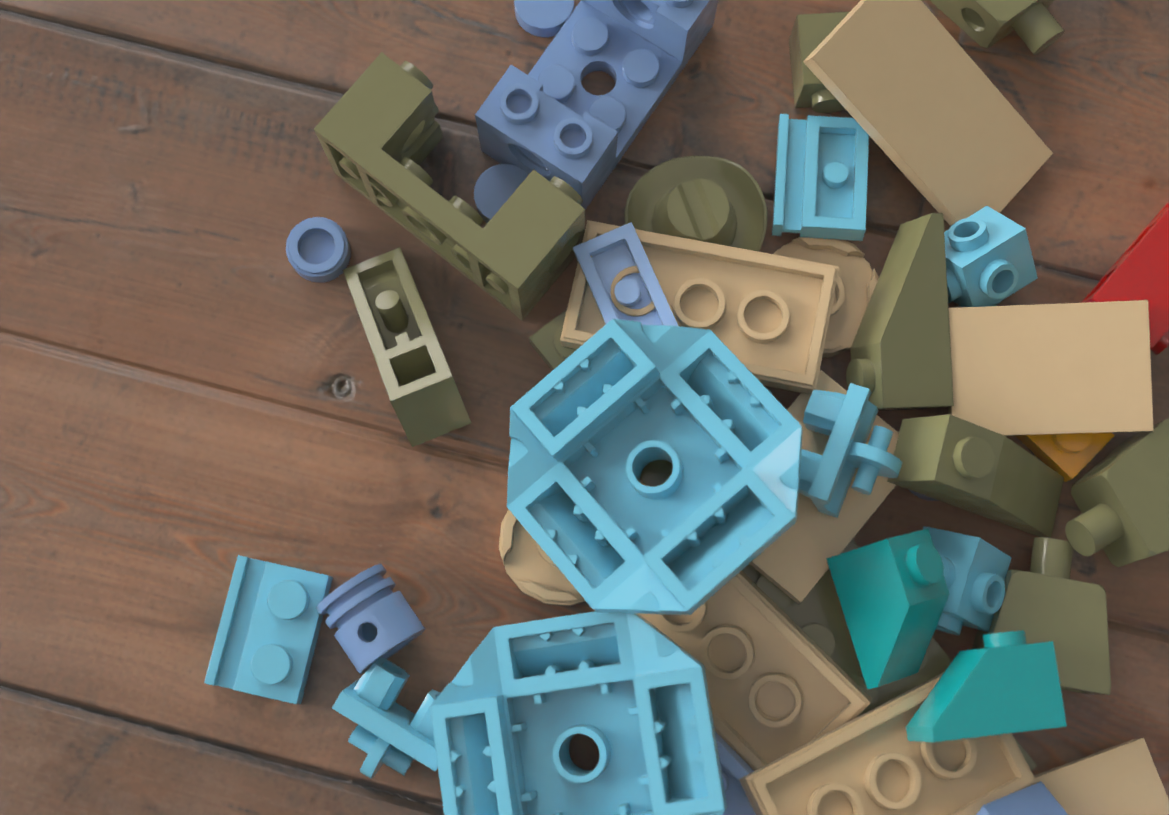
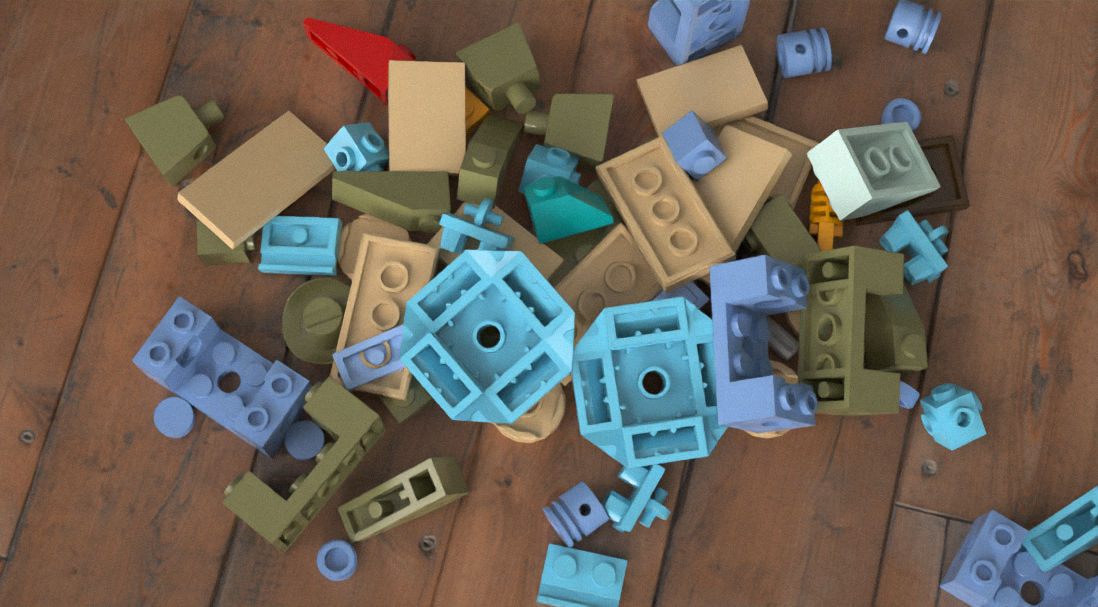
camera: 90 degrees left, 5 degrees down
(993, 692) = (614, 154): teal slope -> none

